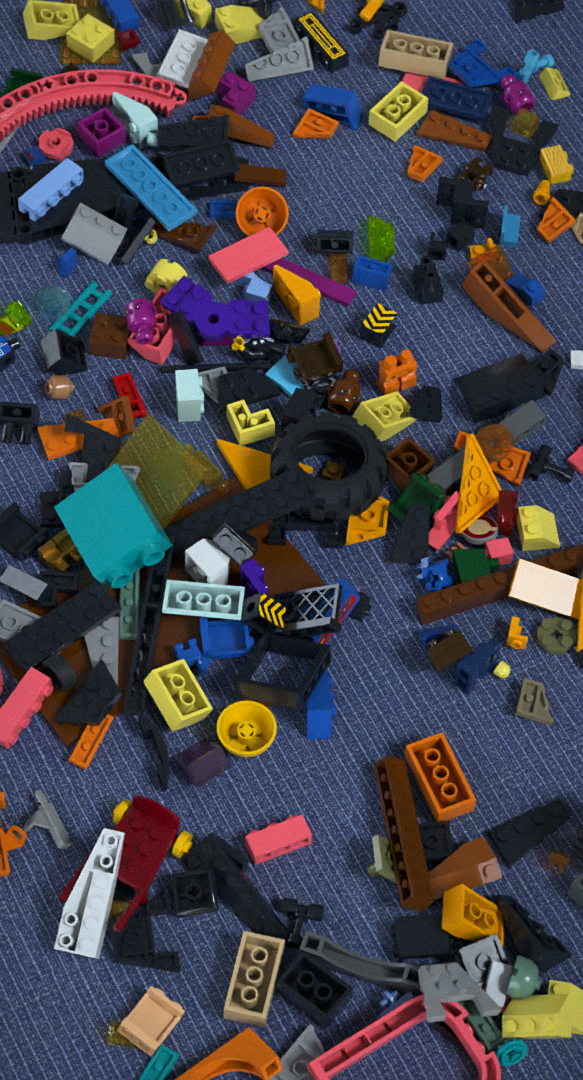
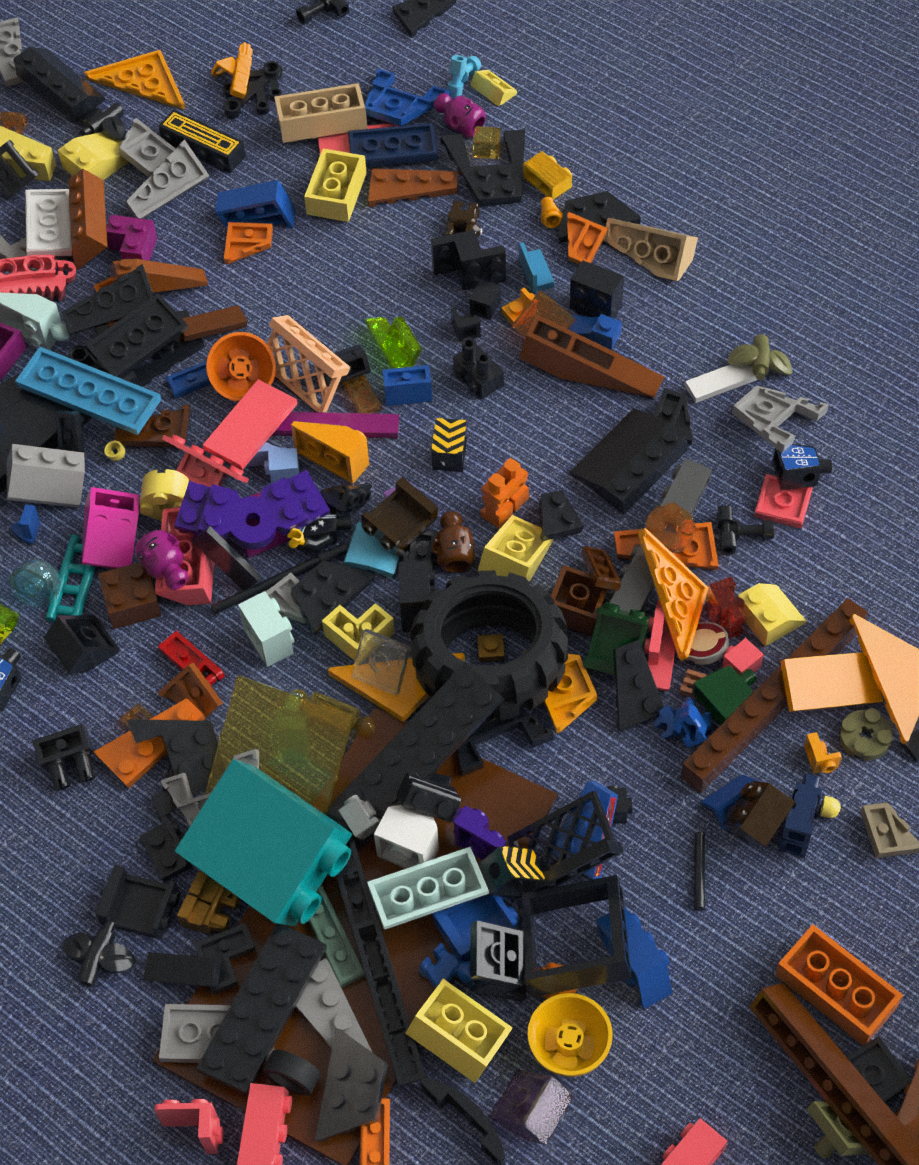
camera: 20 degrees left, 0 degrees up
(59, 387) = (96, 688): medium nougat head -> none
(119, 286) = (109, 528): none -> dark pink slope
(136, 236) = (99, 458): black wing -> none
(182, 537) = (359, 817): none -> light grey brick
(201, 272) = (201, 468): none -> coral bracket
(222, 662) = (497, 960): none -> black bracket
(251, 447) = (381, 661): none -> clear tile
(314, 221) = (309, 349): none -> light nougat fence
(392, 671) = (699, 871): none -> black bar
(422, 163) = (395, 234): orange wing -> none
(434, 450) = (600, 568): none -> reddish brown tile
(540, 261) = (596, 291): none -> black brick

